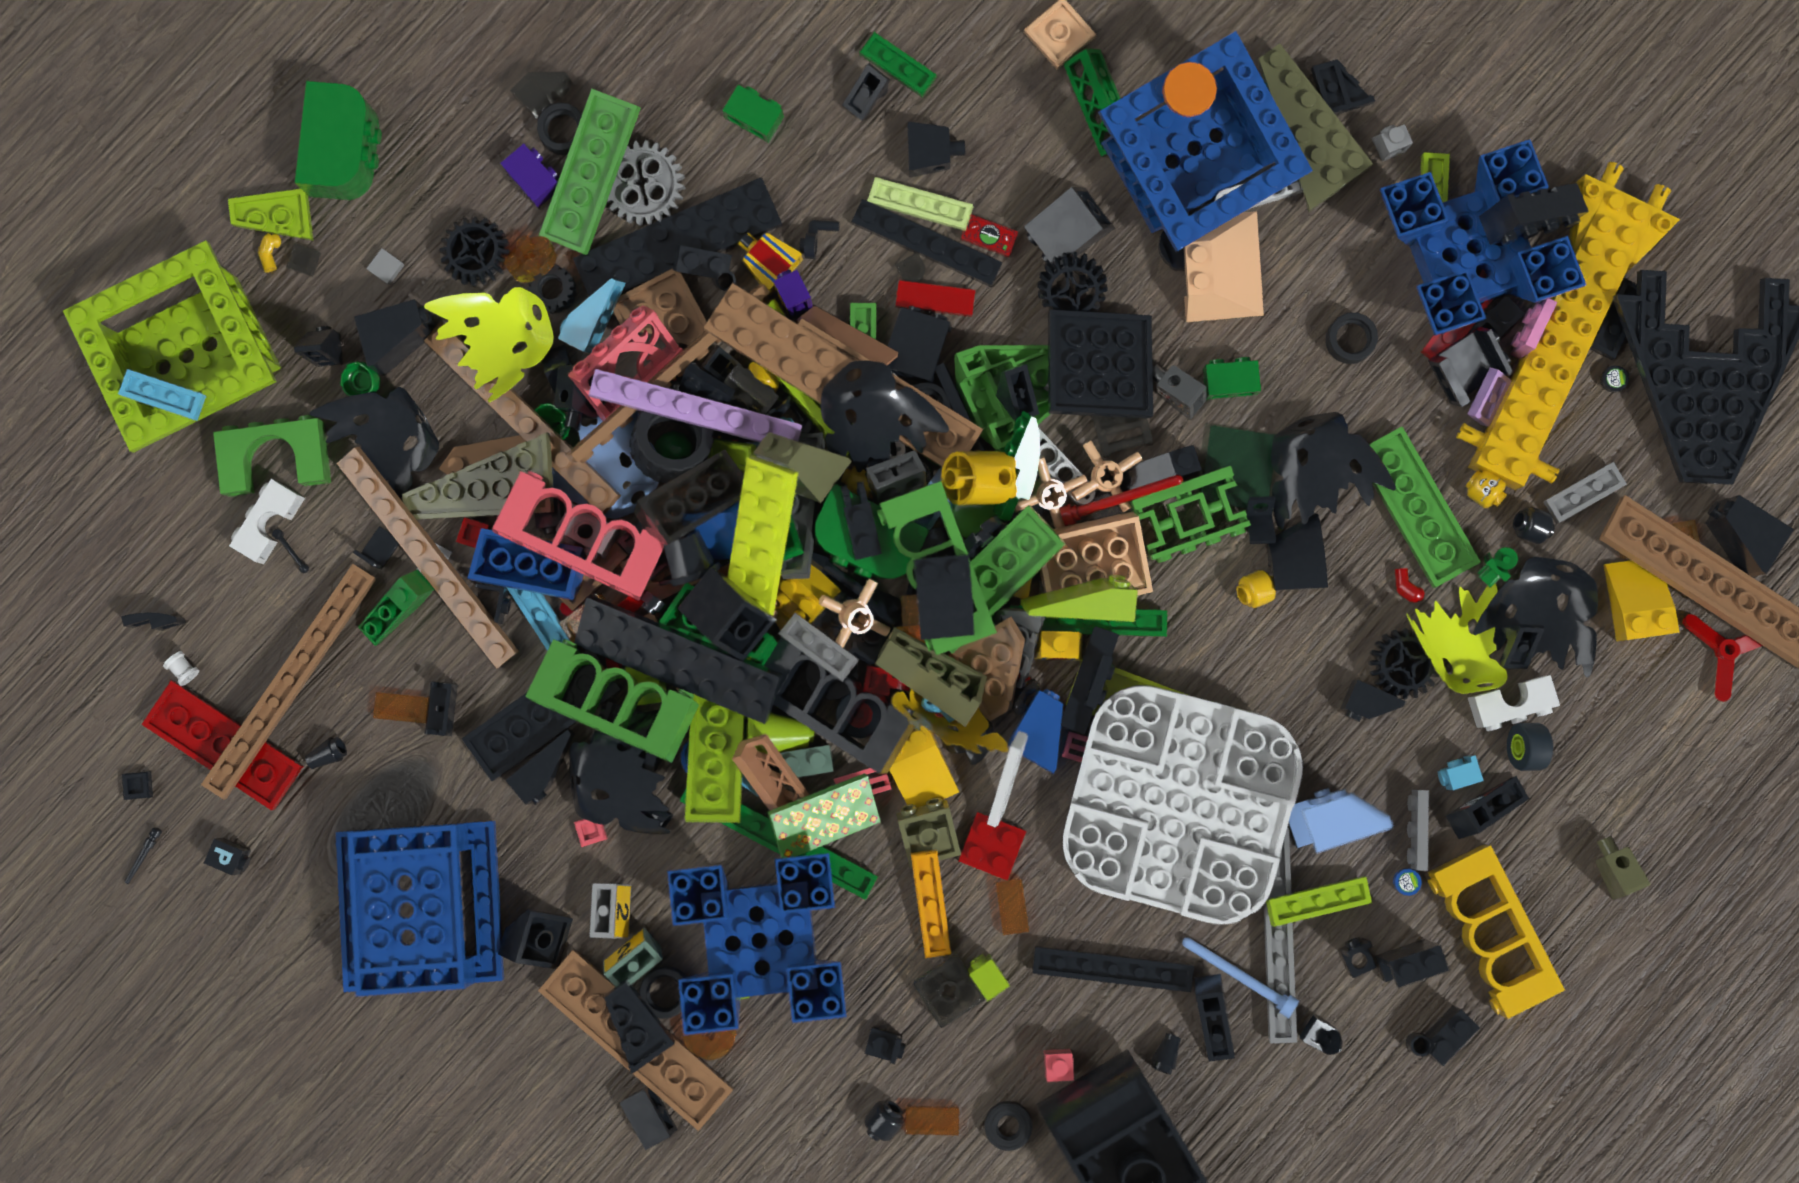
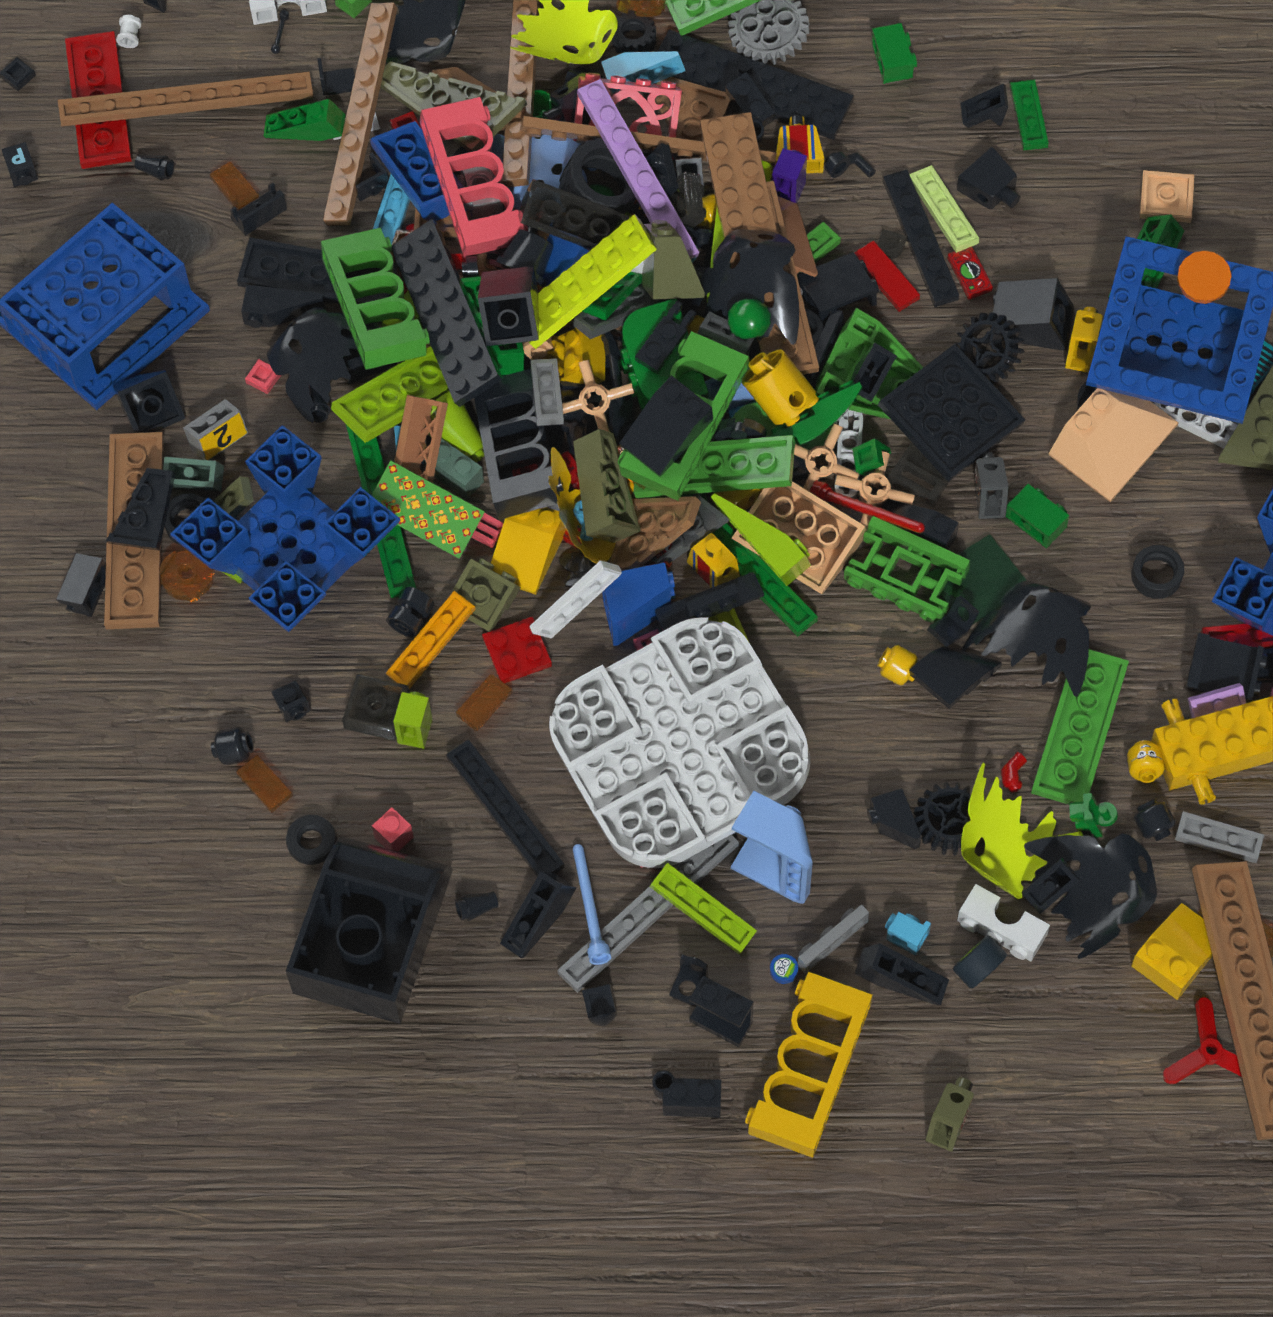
camera: 45 degrees right, 20 degrees down
(684, 950) = (236, 497): none -> olive plate
(895, 899) = (409, 615): none -> black wheel
(904, 448) = (748, 319): none -> green hair
(1080, 457) = (869, 456): none -> green panel
(1125, 209) = (1085, 329): none -> yellow torso

